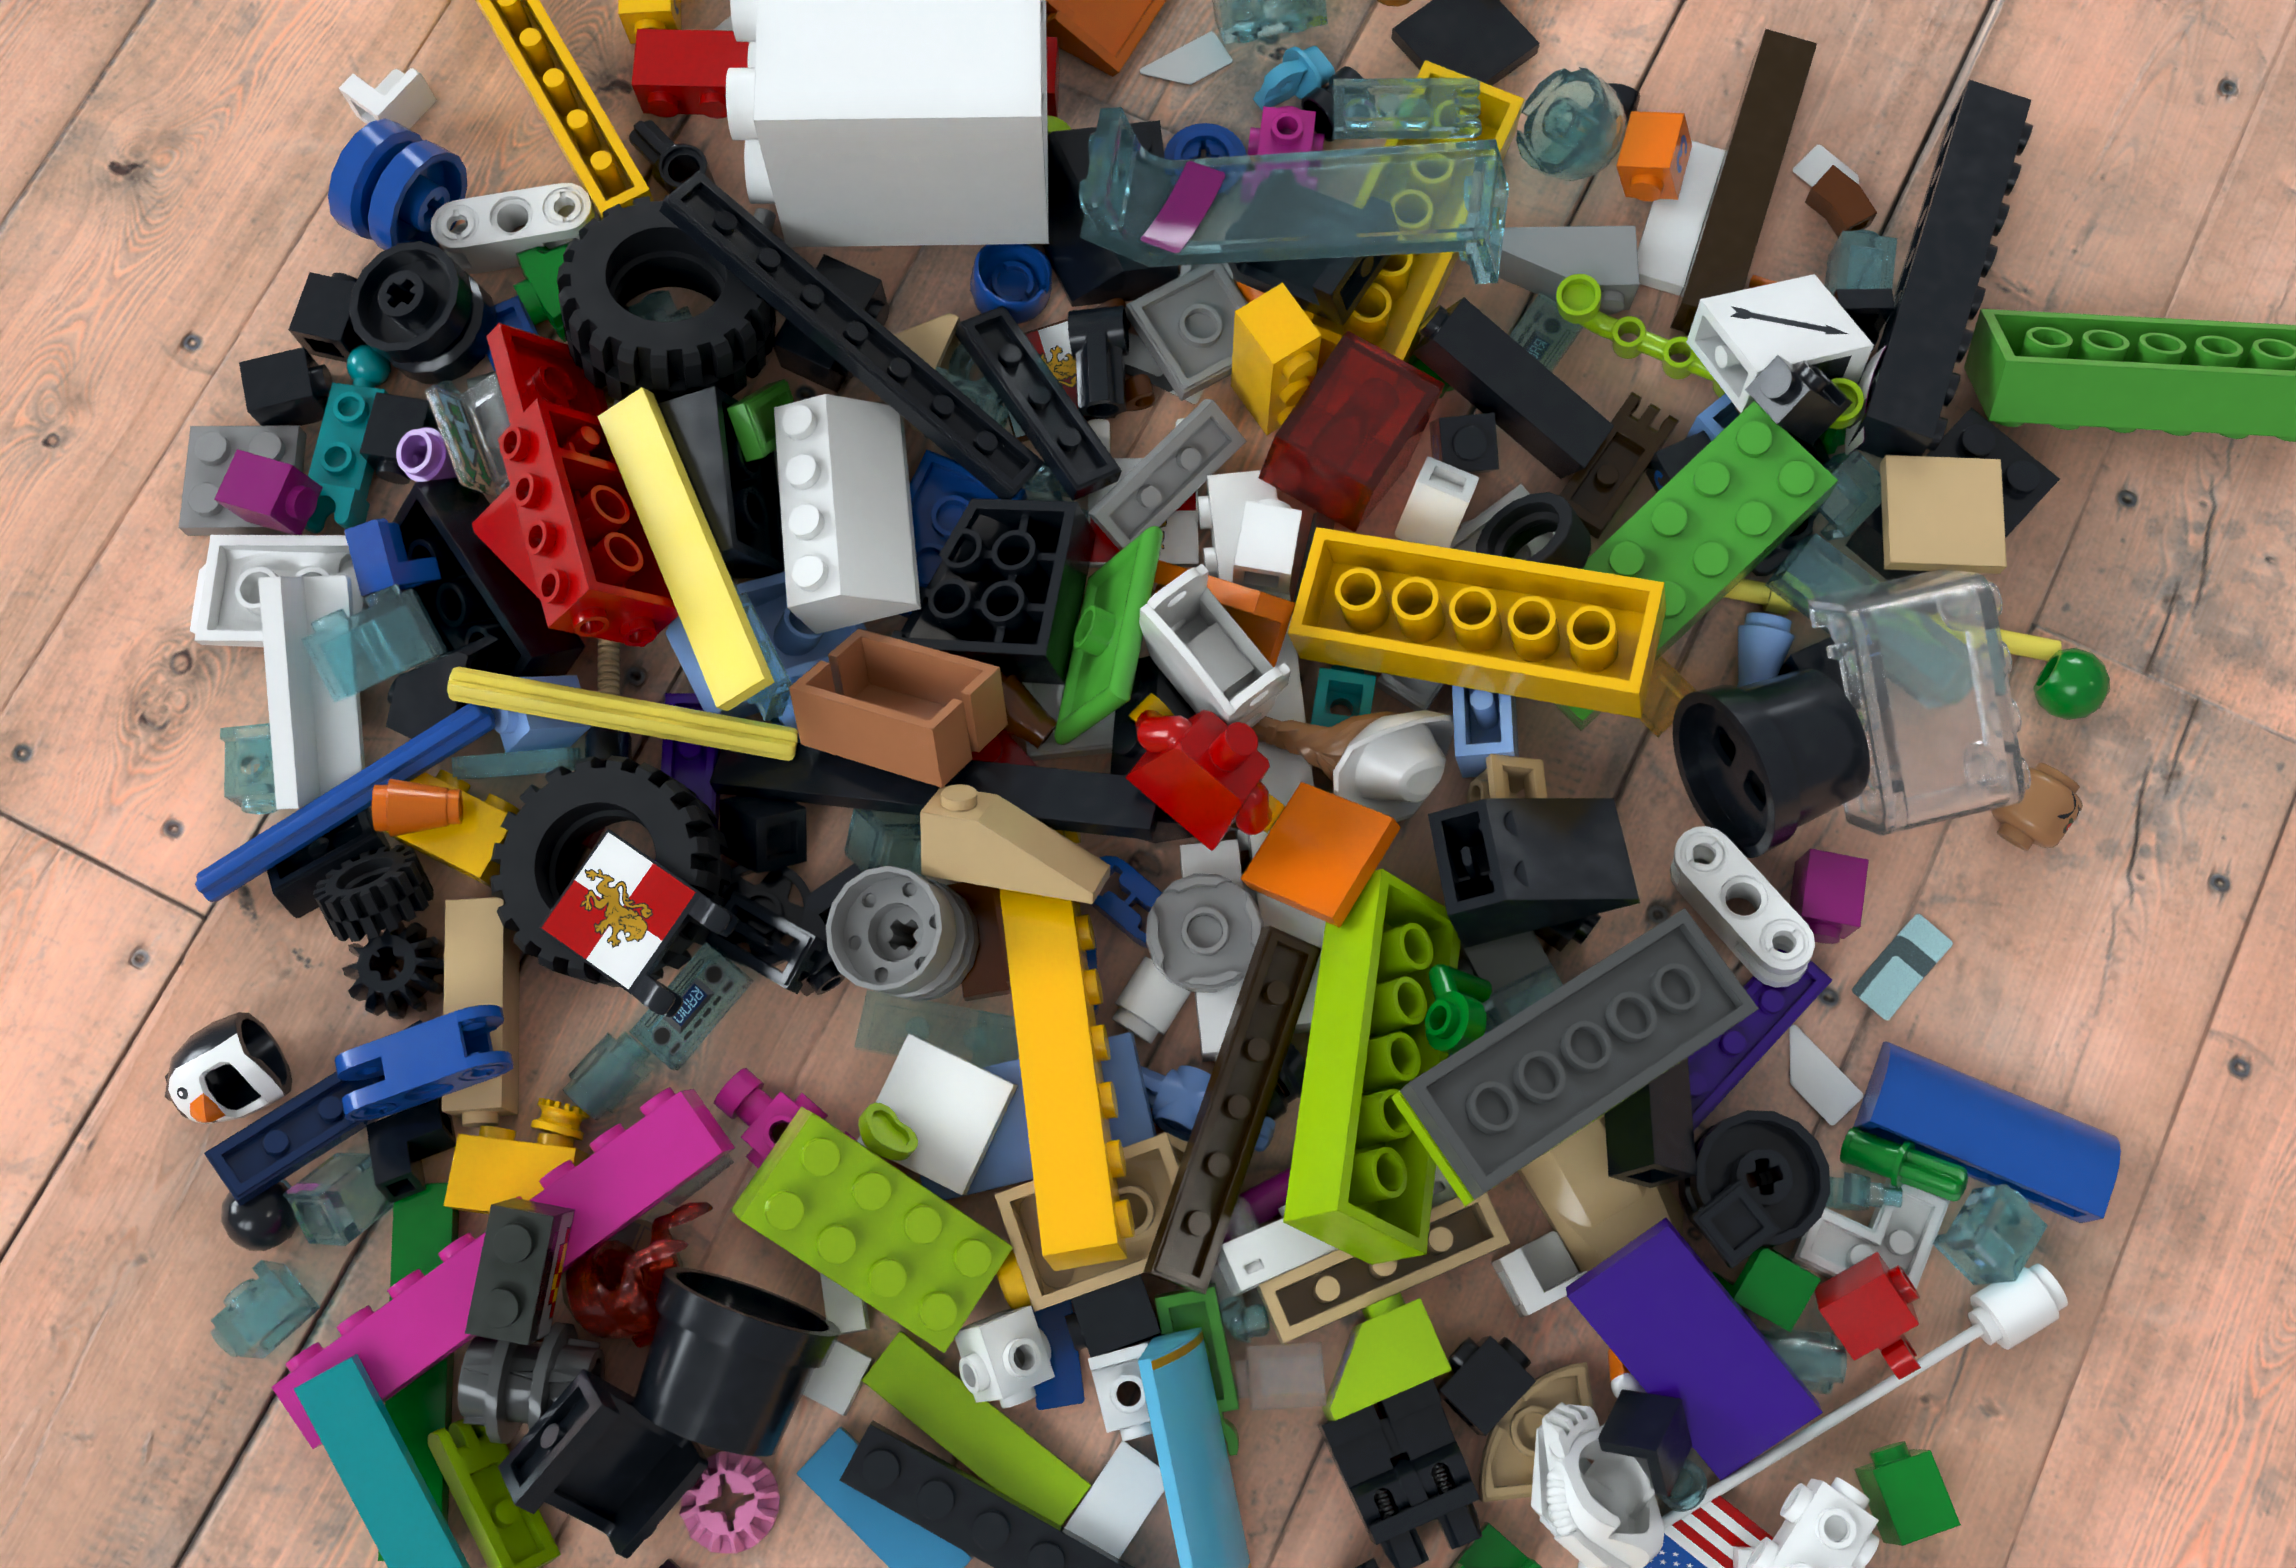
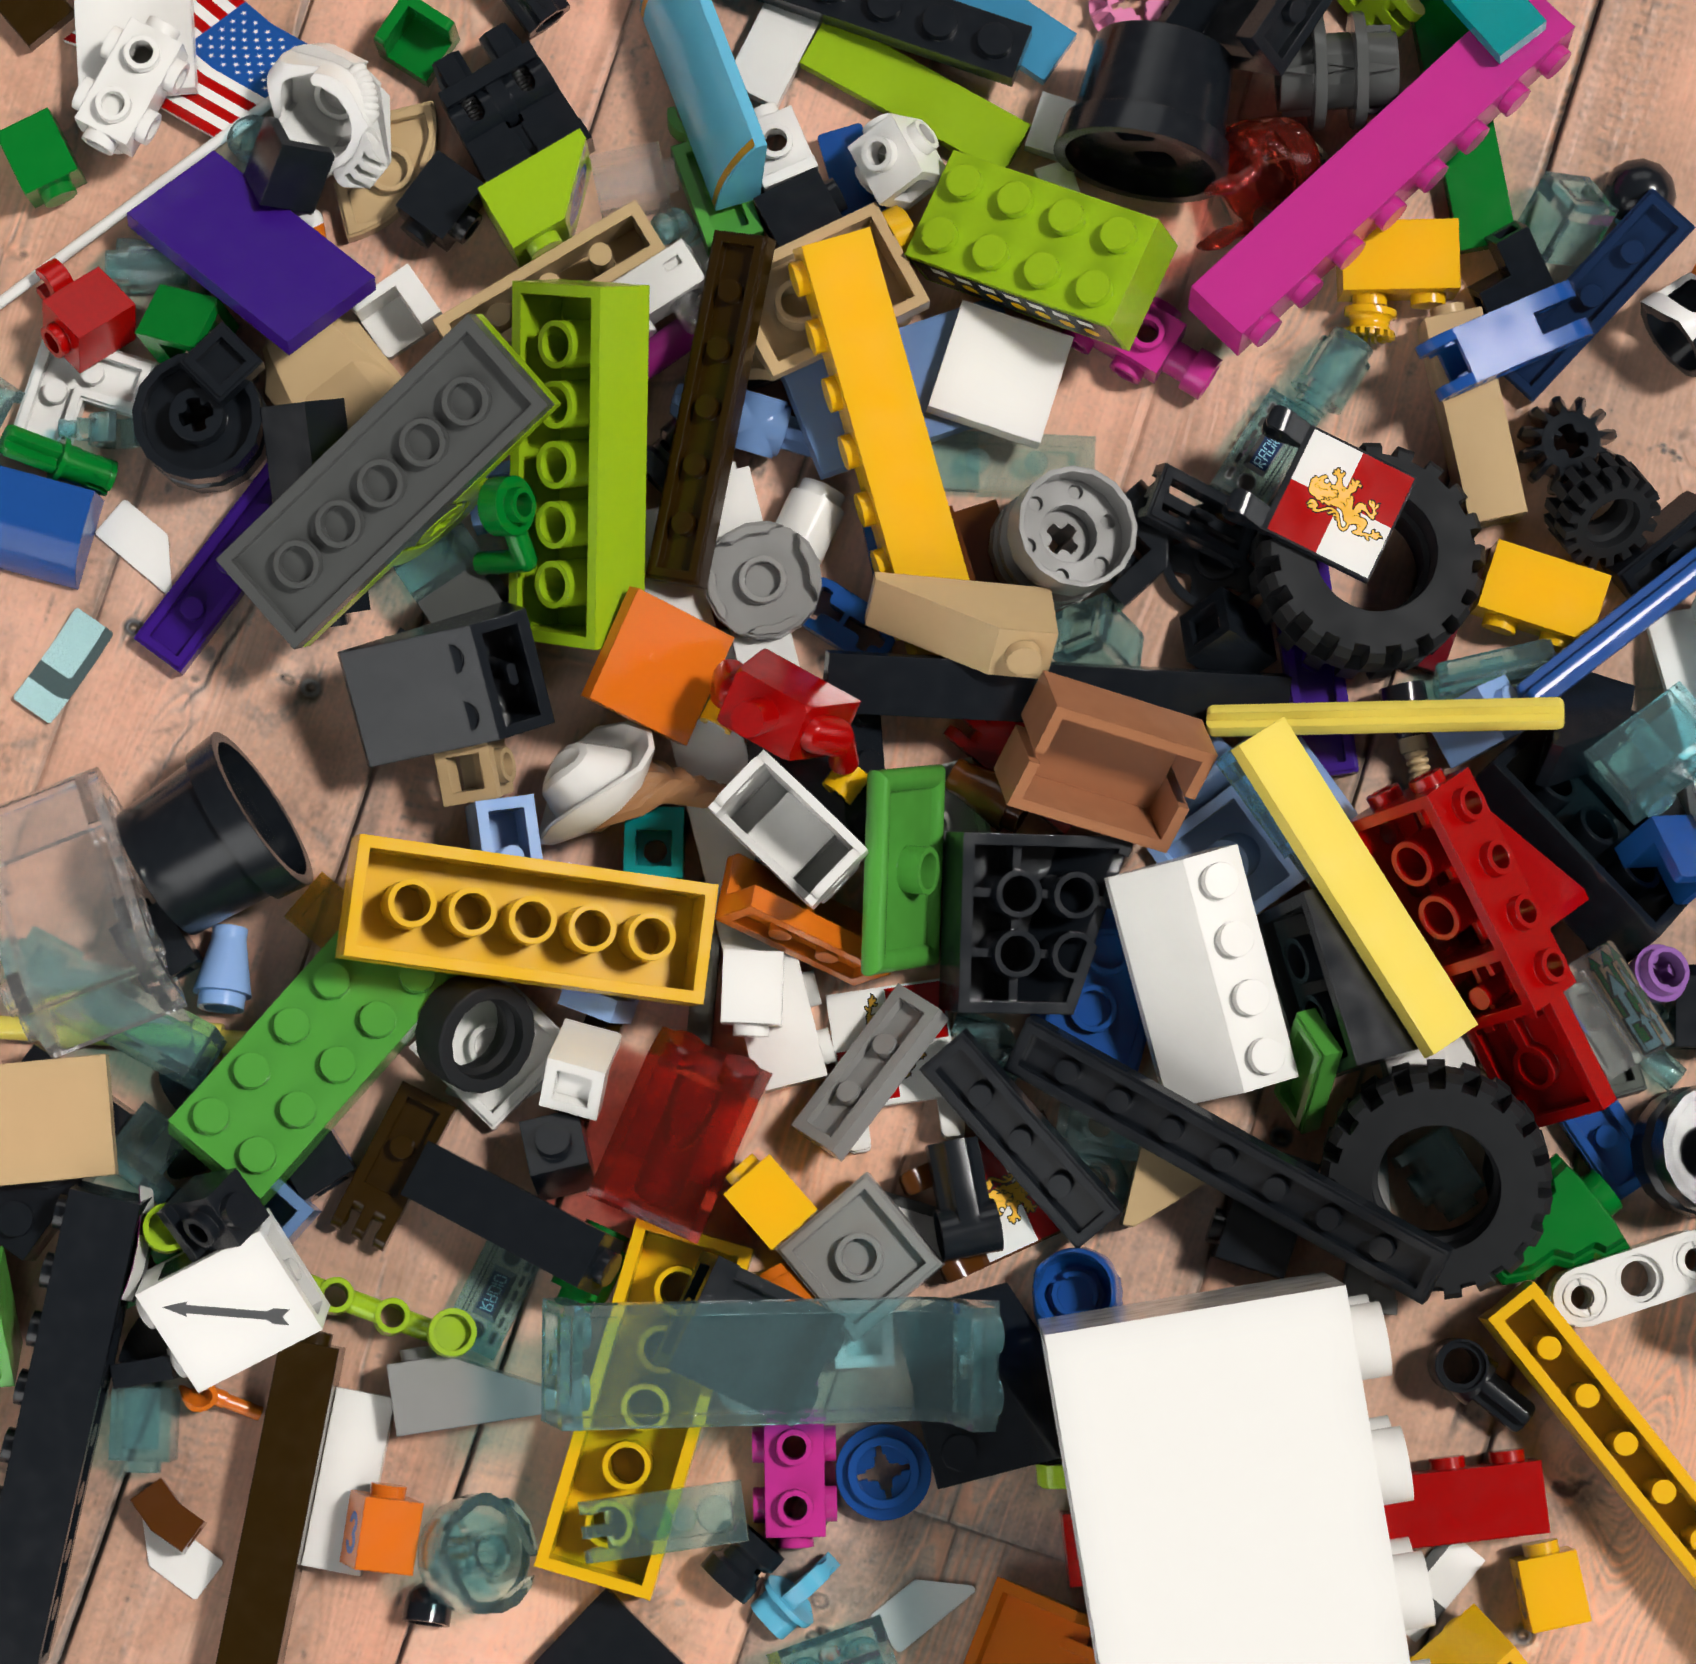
camera: 170 degrees right, 10 degrees up
(262, 1312) = (1613, 103): clear light blue brick -> none
(414, 807) = (1576, 592): orange cone -> none
(519, 1271) = (1356, 147): pearl dark grey brick -> none
(885, 1133) = (1044, 340): lime piece -> none
(1184, 207) = (892, 1354): magenta sticker -> none
(1752, 937) = (213, 663): white piece -> none
(1829, 893) = (144, 718): magenta brick -> none

